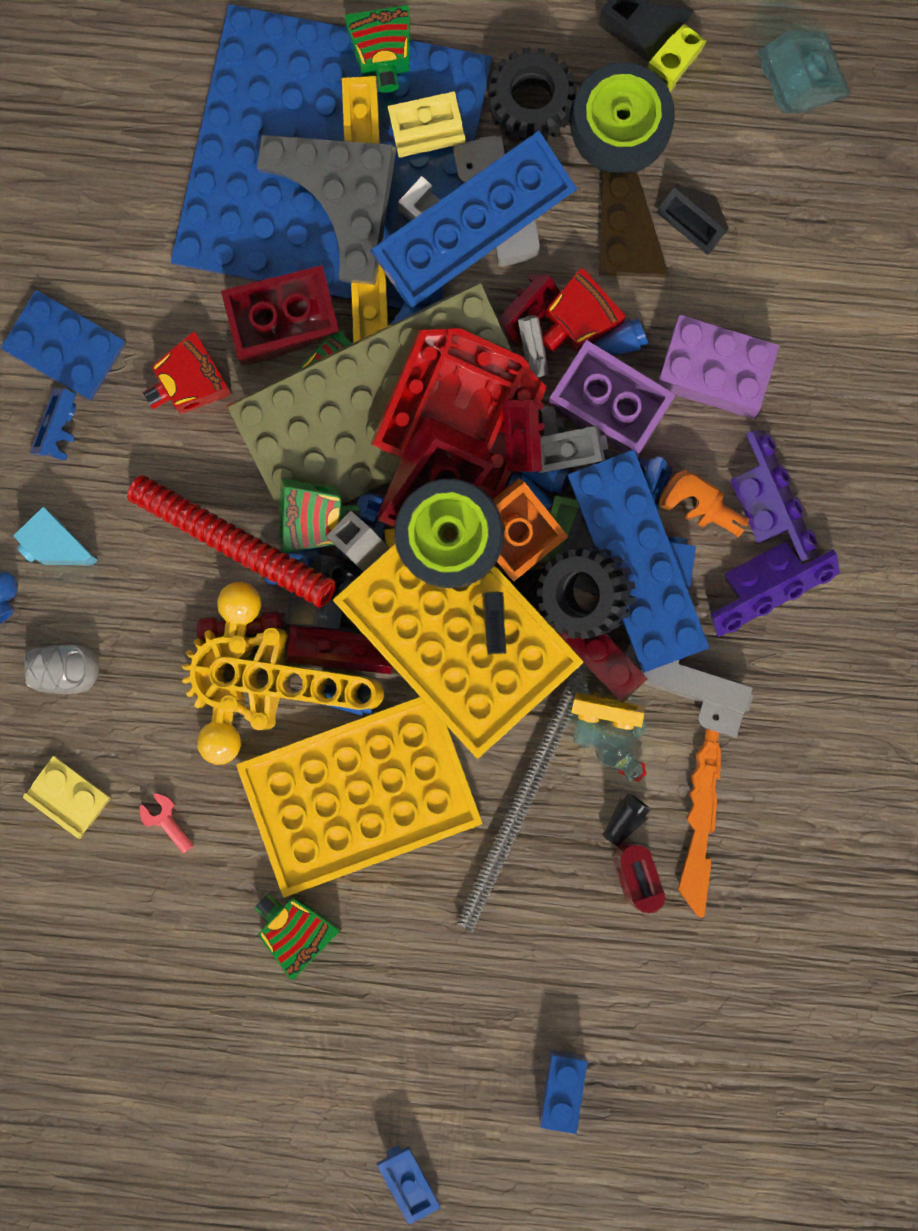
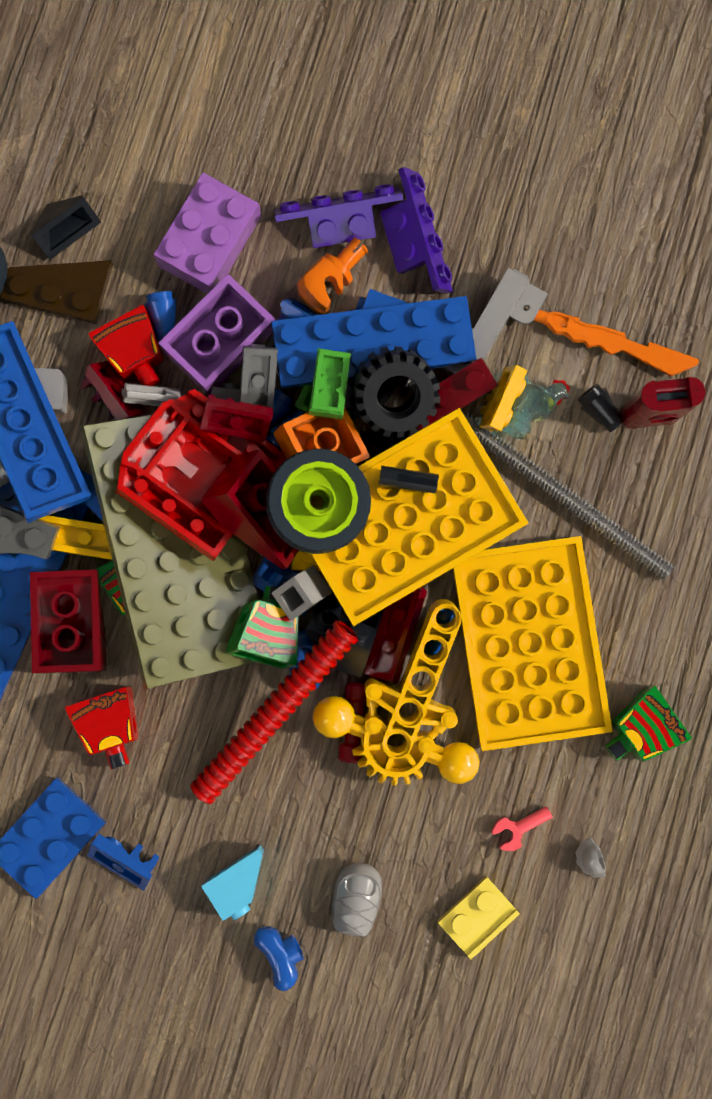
camera: 90 degrees left, 0 degrees up
(148, 902) = (590, 859): none -> light grey piece
(578, 522) = (329, 384): none -> bright green plate

